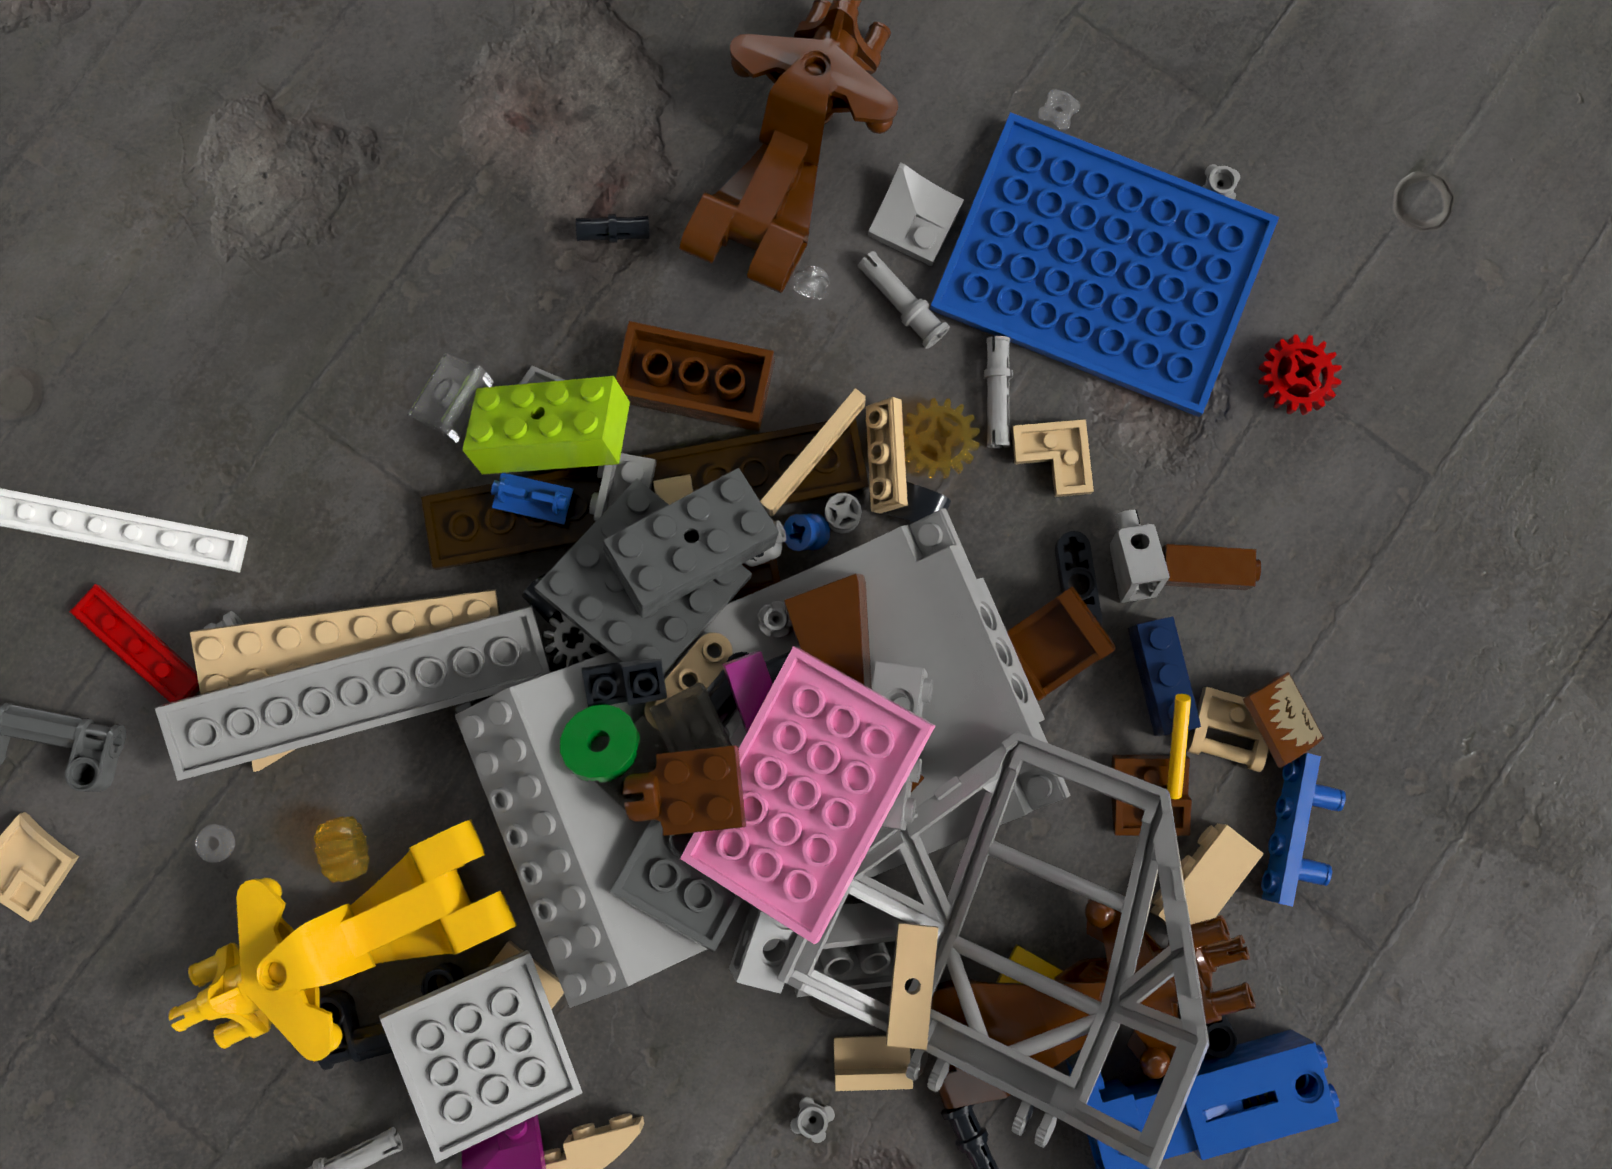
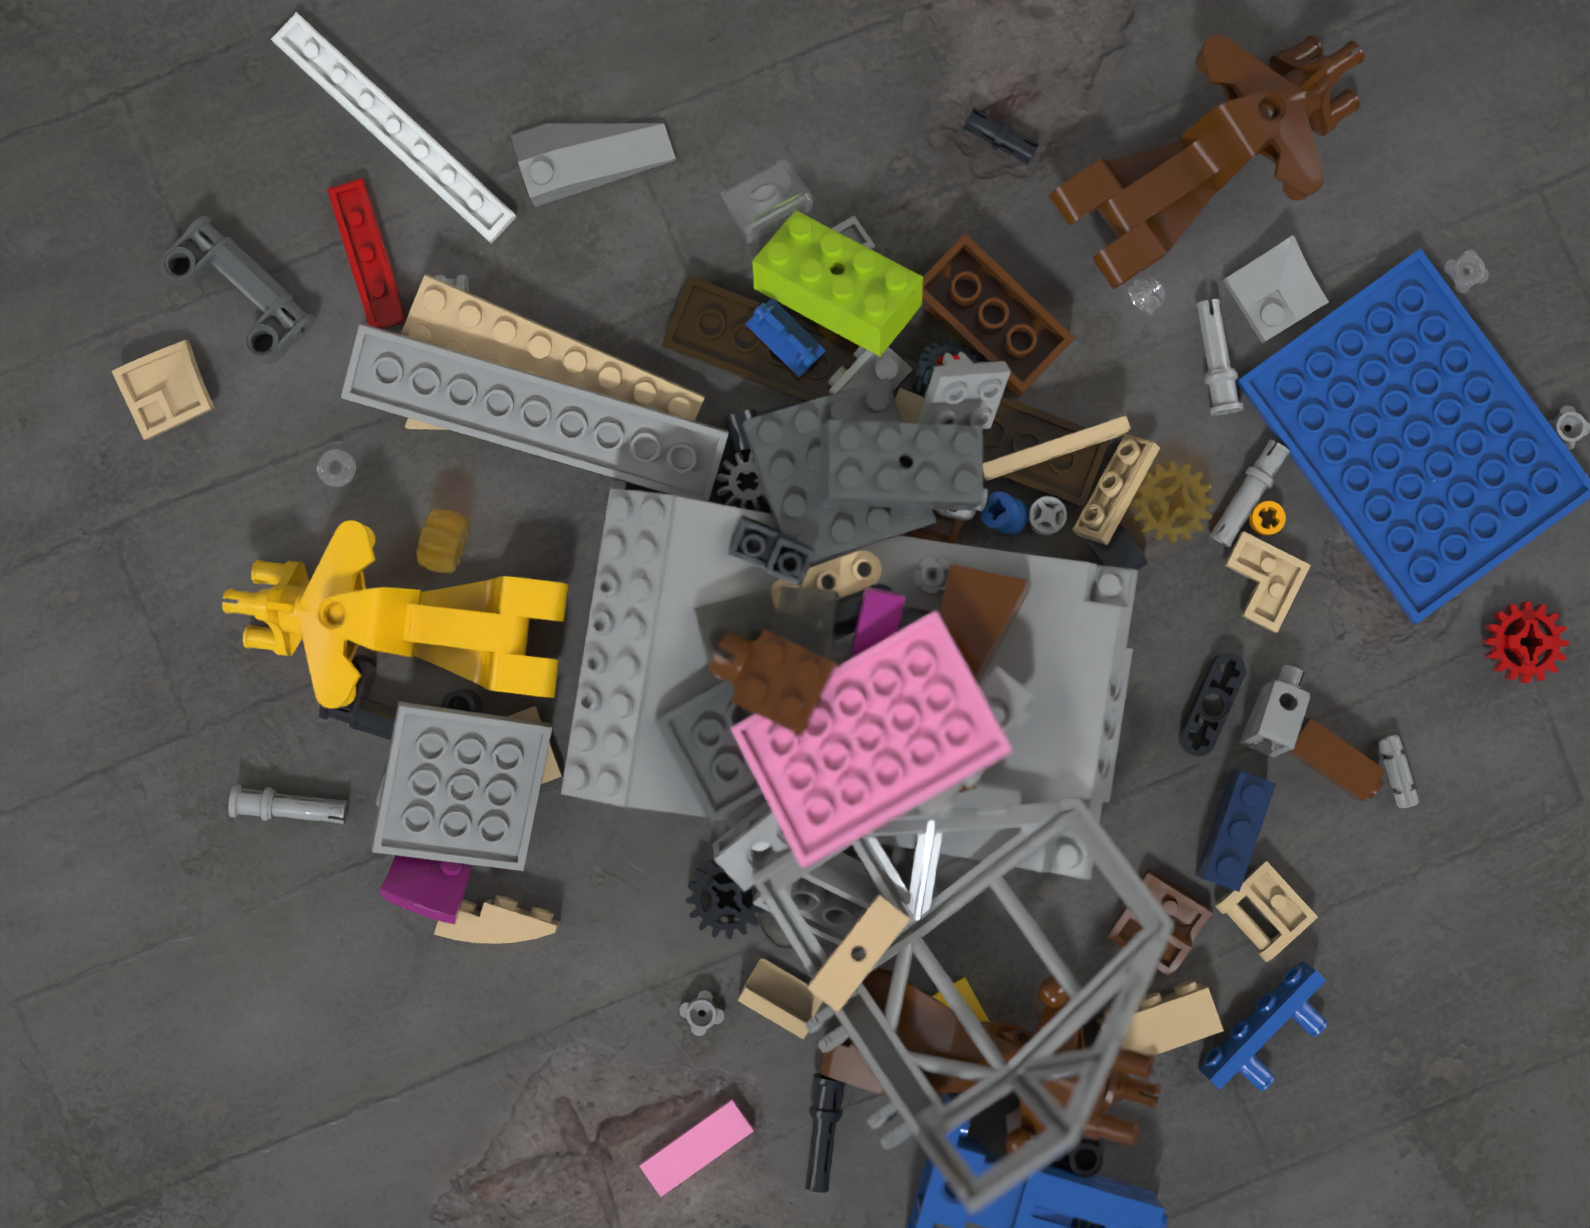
camera: 30 degrees right, 5 degrees up
(270, 457) = (581, 156): none -> light grey wedge
(585, 728) = (724, 569): green tile -> none
(701, 447) = (959, 386): none -> light grey plate
(753, 1002) = (715, 910): none -> black gear
(1033, 397) = (1278, 515): none -> light orange bush
(1059, 642) = (1163, 744): reddish brown panel -> none
(1178, 745) = (1209, 896): yellow bar -> none
(1265, 544) = (1398, 771): none -> light grey axle
(1283, 719) = (1314, 929): slope -> none

